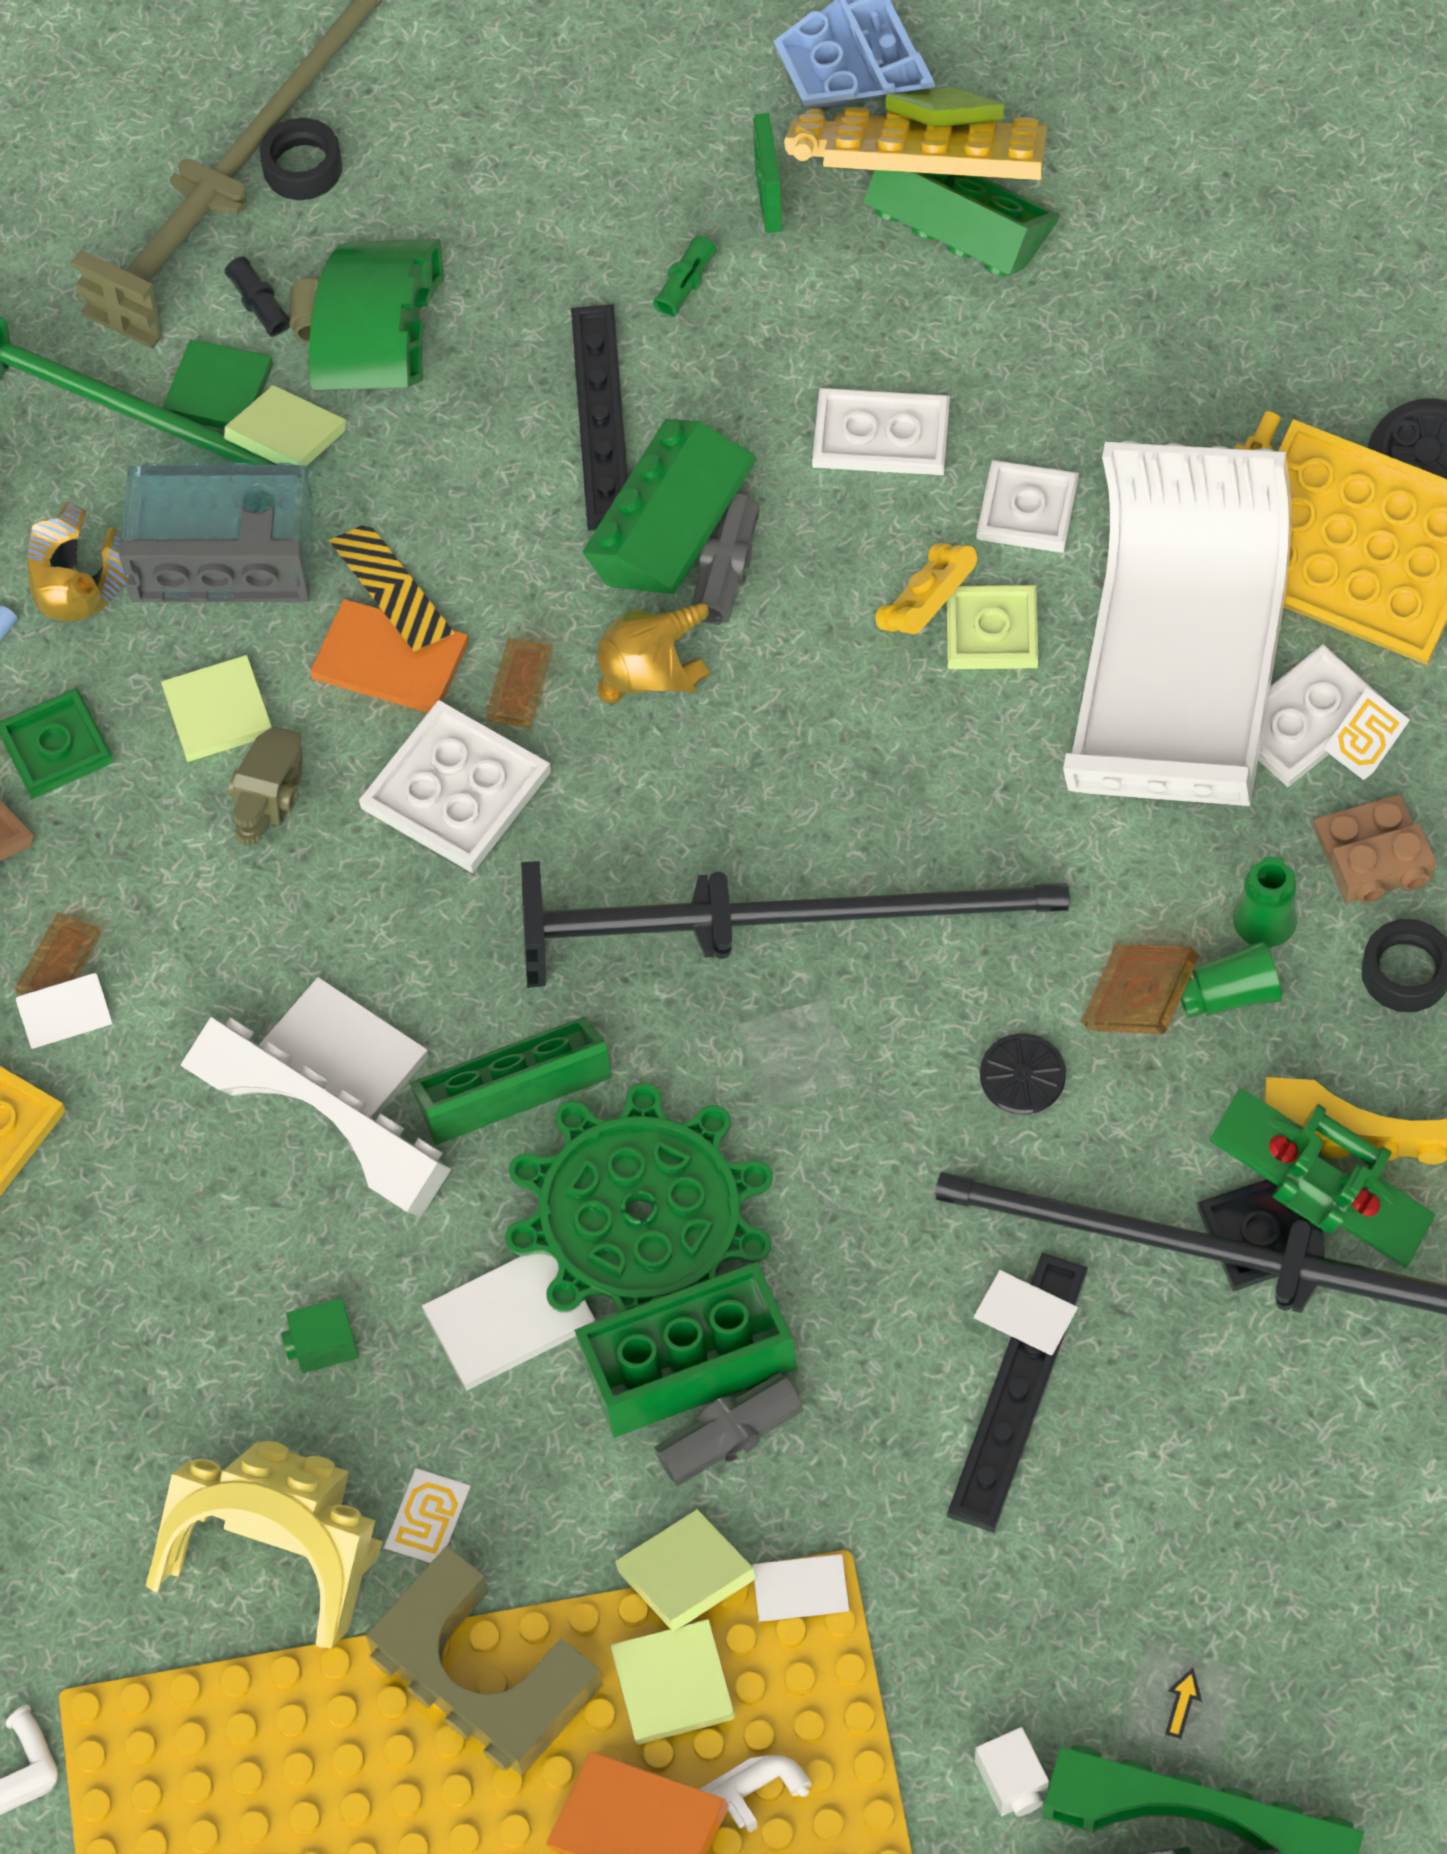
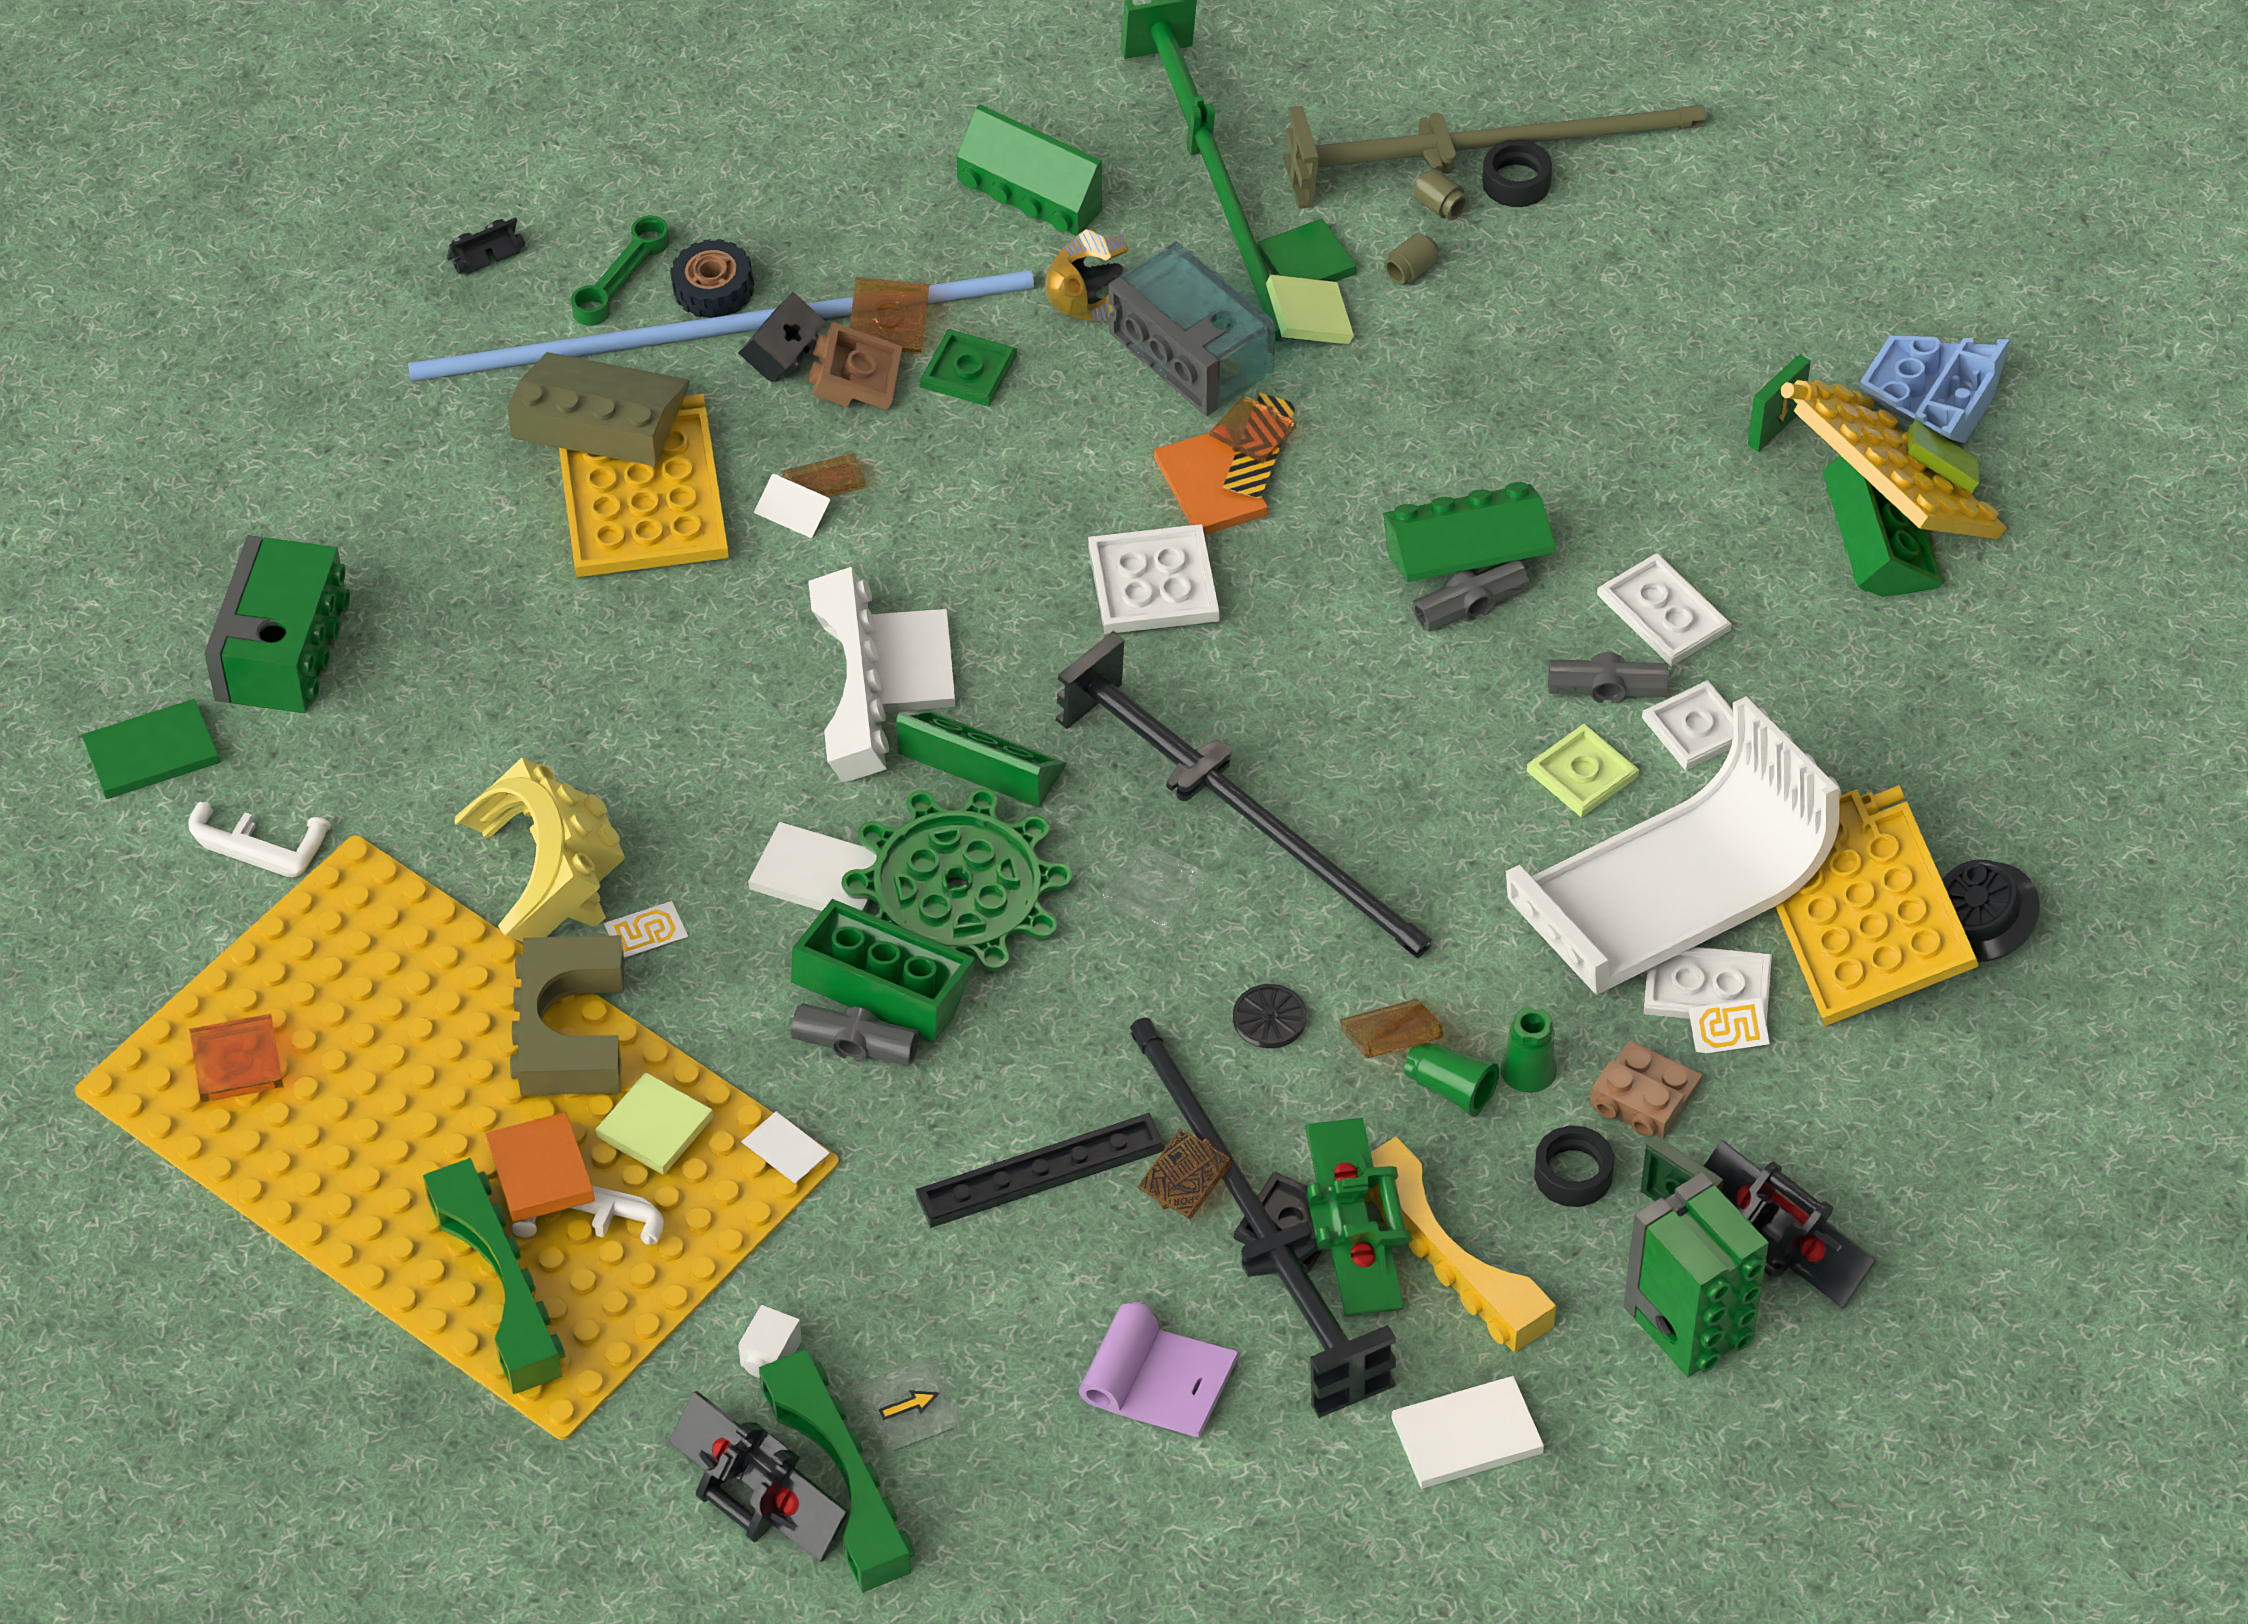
camera: 45 degrees right, 10 degrees down
(216, 708) = (1079, 426): yellowish green tile -> none
(257, 296) = (1391, 225): black pin -> none
(262, 231) = (1440, 194): none -> olive brick
(266, 783) = (1048, 483): olive hinge -> none
(319, 1336) = (706, 785): green brick -> none
(368, 314) = (1437, 283): green panel -> none
(370, 577) = (1253, 429): none -> clear orange piece
(519, 683) = (1264, 559): clear orange tile -> none
(599, 408) = (1521, 445): black tile -> none
(641, 655) = (1338, 594): pearl gold piece -> none
(685, 276) = (1683, 420): green pin -> none
(685, 1570) = (735, 1077): yellowish green tile -> none
(918, 529) = (1608, 678): none -> dark grey piece
(928, 589) = (1567, 713): yellow plate -> none
(1025, 1312) = (1096, 1132): white sticker -> none
(1140, 1276) = (1185, 1174): none -> clear orange piece
(1325, 1470) = (1156, 1373): none -> lavender door

